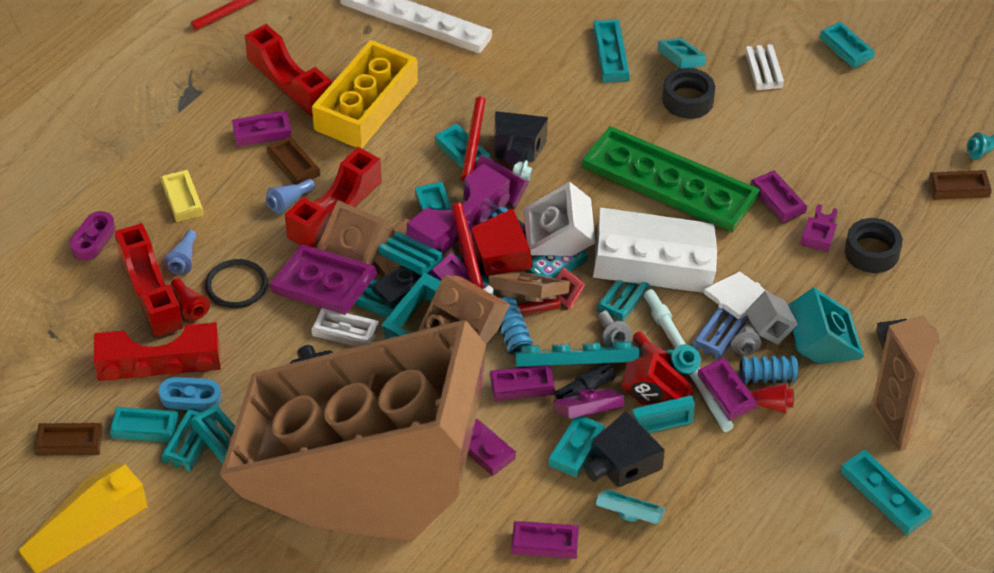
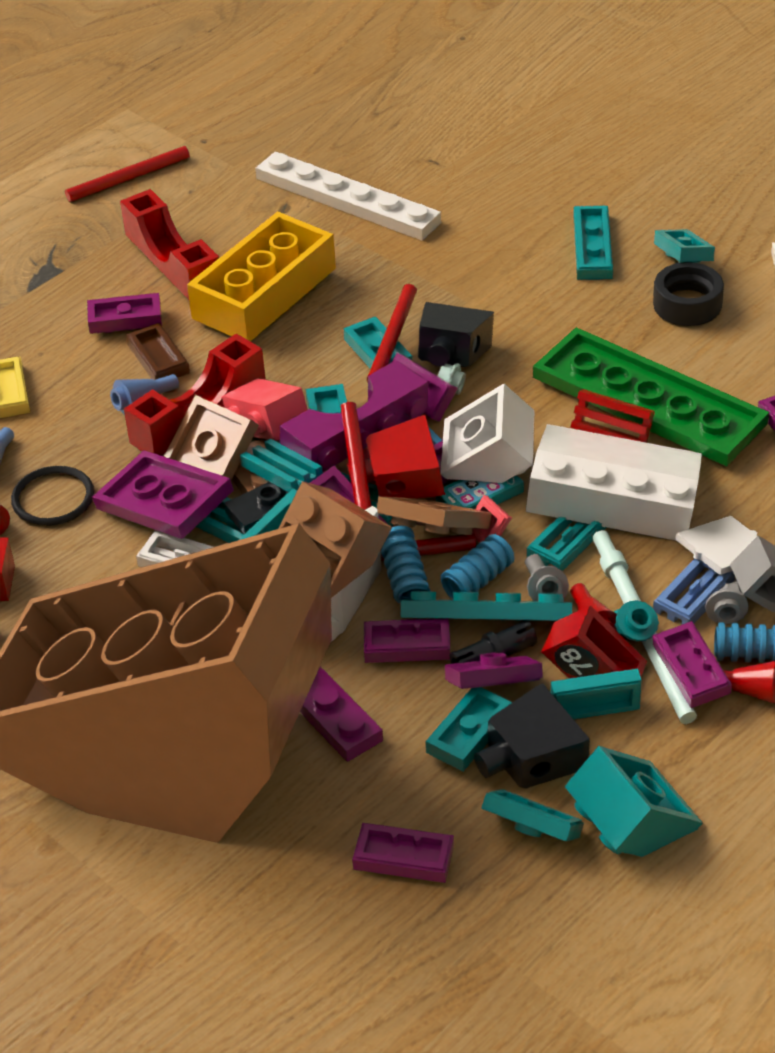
camera: 10 degrees right, 5 degrees down
(390, 203) = (267, 405): none -> coral brick
(565, 323) = (478, 566): none -> dark azure piece
(631, 207) = (582, 411): none -> red tile
(696, 493) = (630, 803): none -> teal slope

